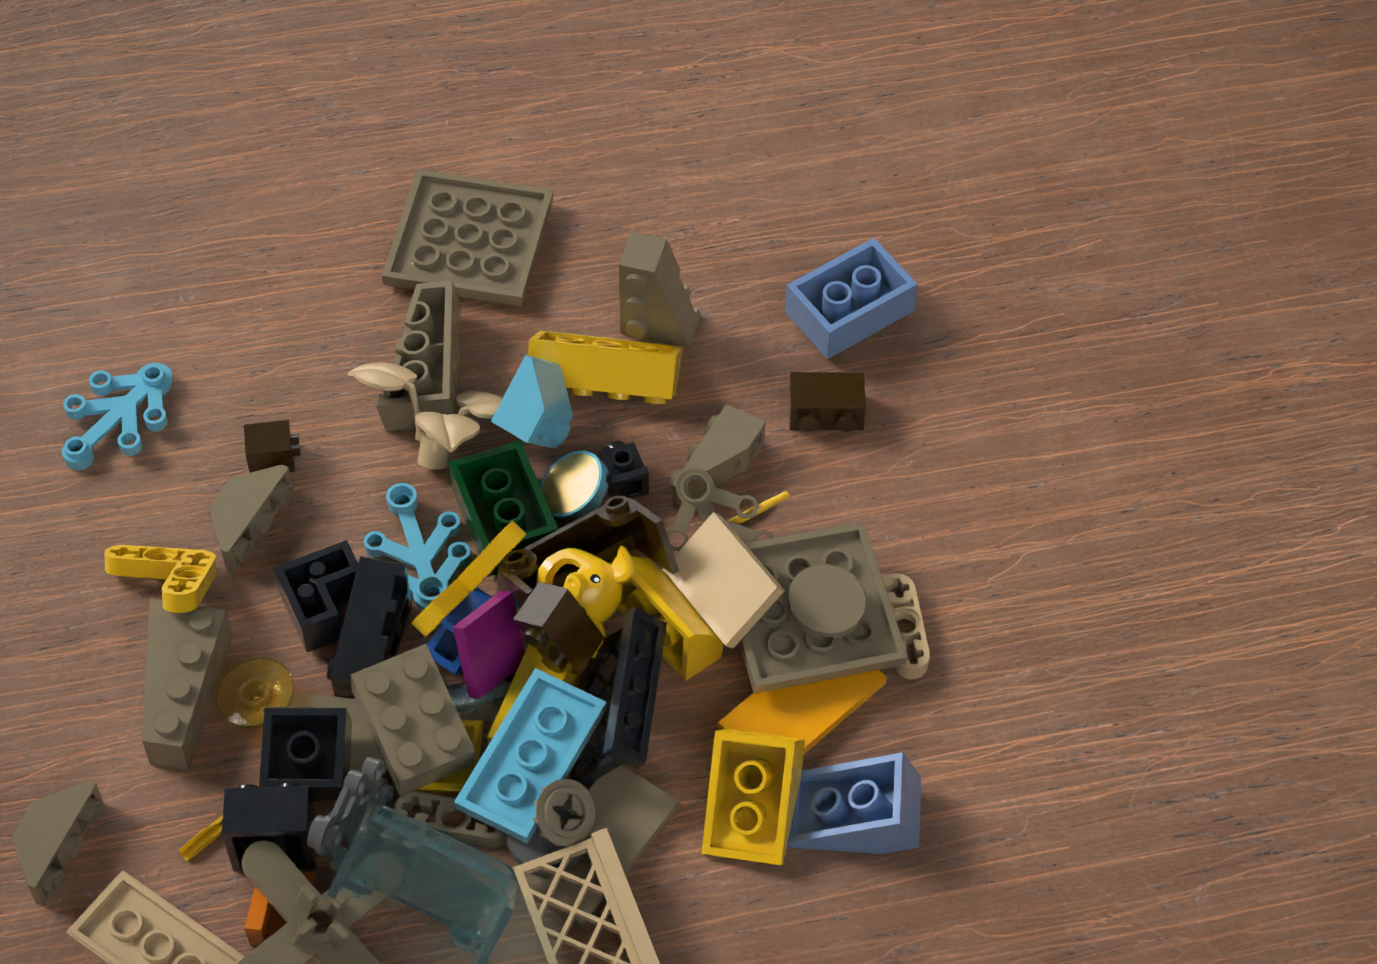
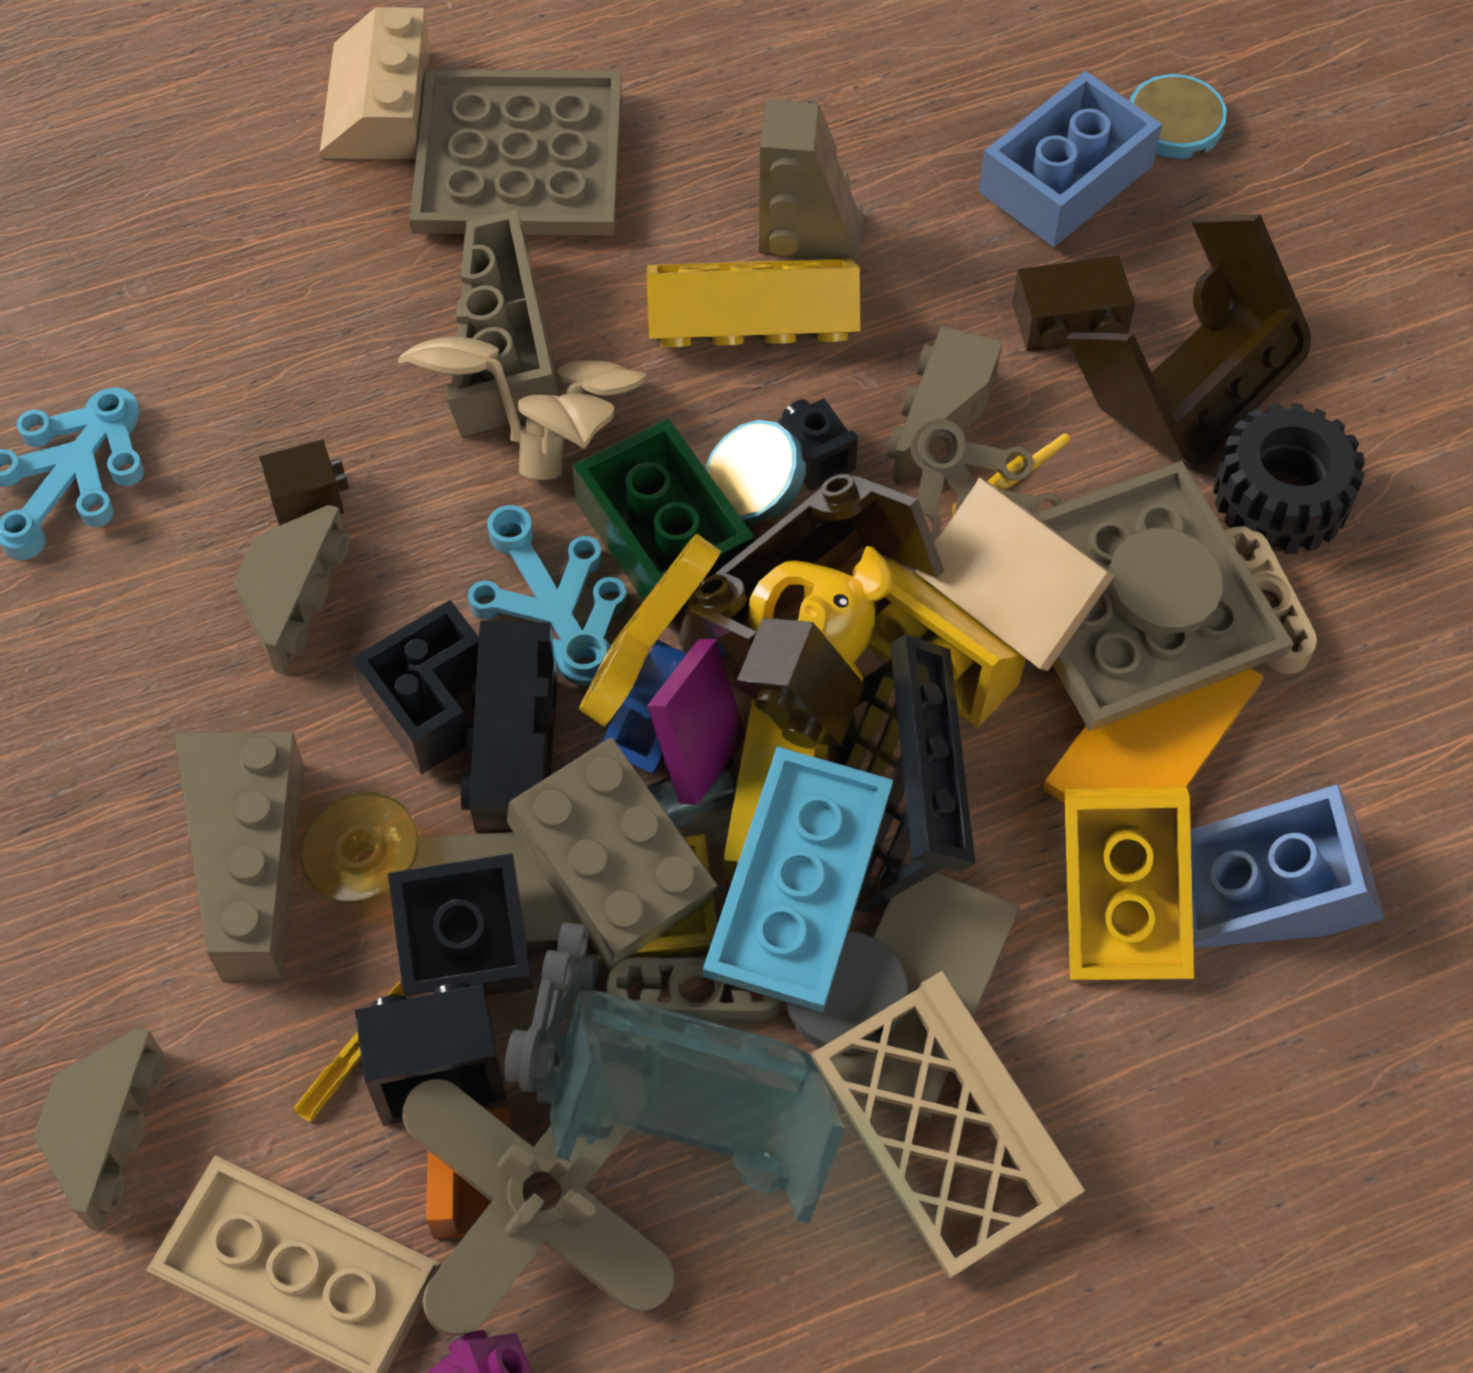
camera: 10 degrees left, 5 degrees up
(185, 570) = (220, 681): yellow beam -> none
(381, 176) = (377, 87): none -> tan slope
(536, 404) = (677, 365): medium azure slope -> none
(578, 803) = (887, 939): dark tan gear -> none
(918, 466) = (1227, 368): none -> dark brown windscreen
(943, 276) = (1189, 113): none -> pearl gold tile
(943, 520) = (1295, 444): none -> black tyre

